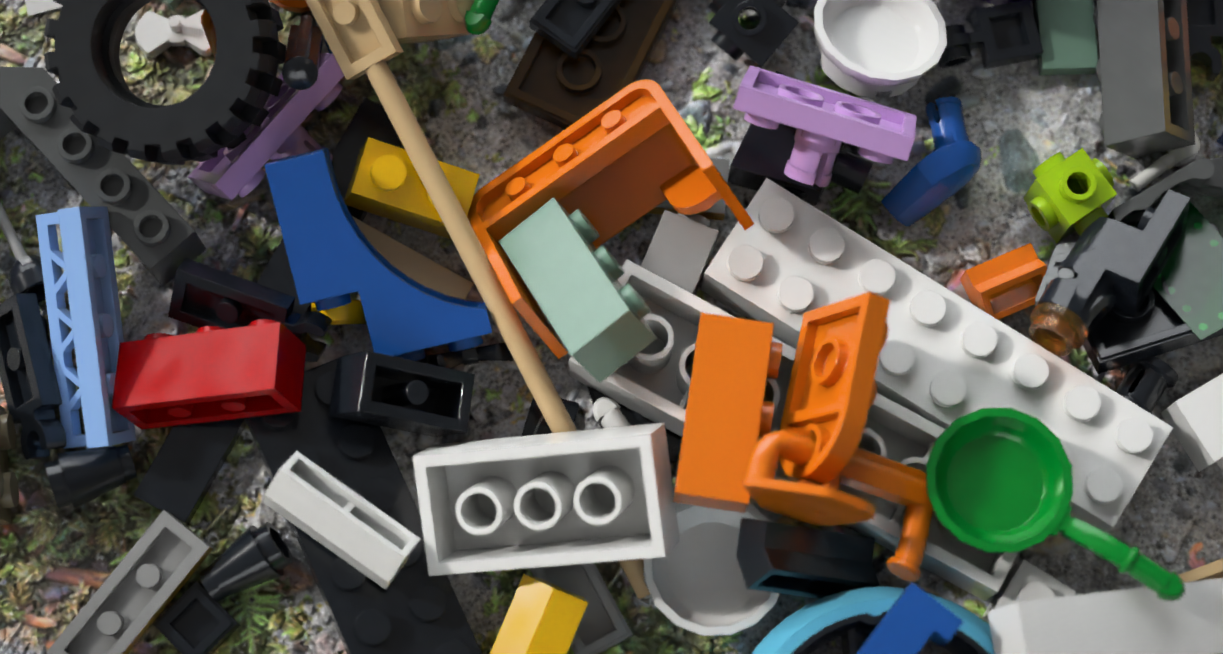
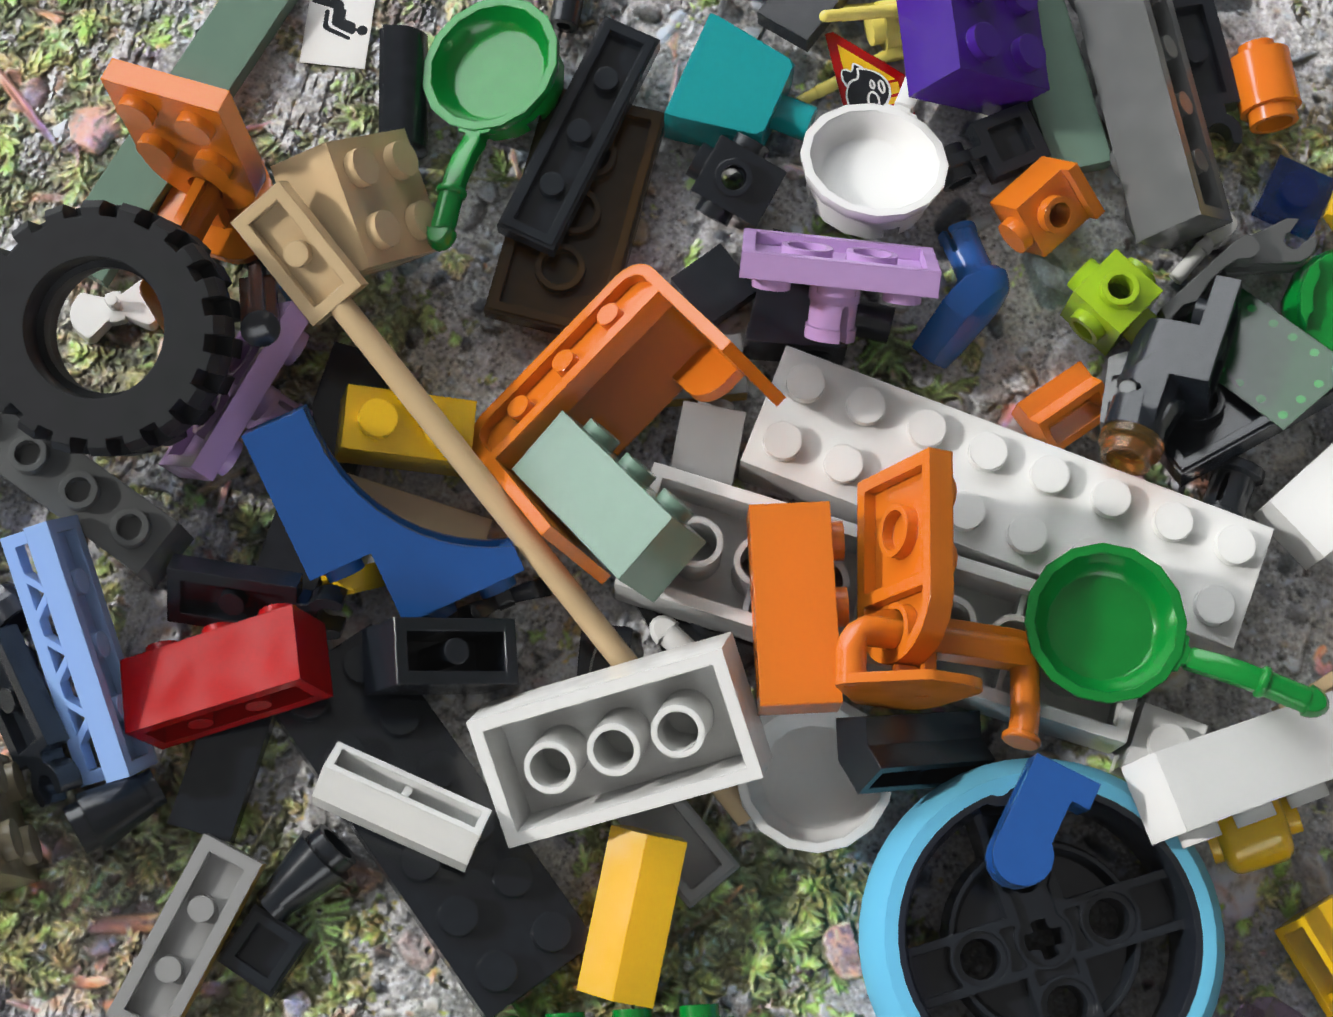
camera: 10 degrees left, 0 degrees up
(711, 113) = (714, 285): none -> black tile
(1027, 97) = (1045, 206): none -> orange brick

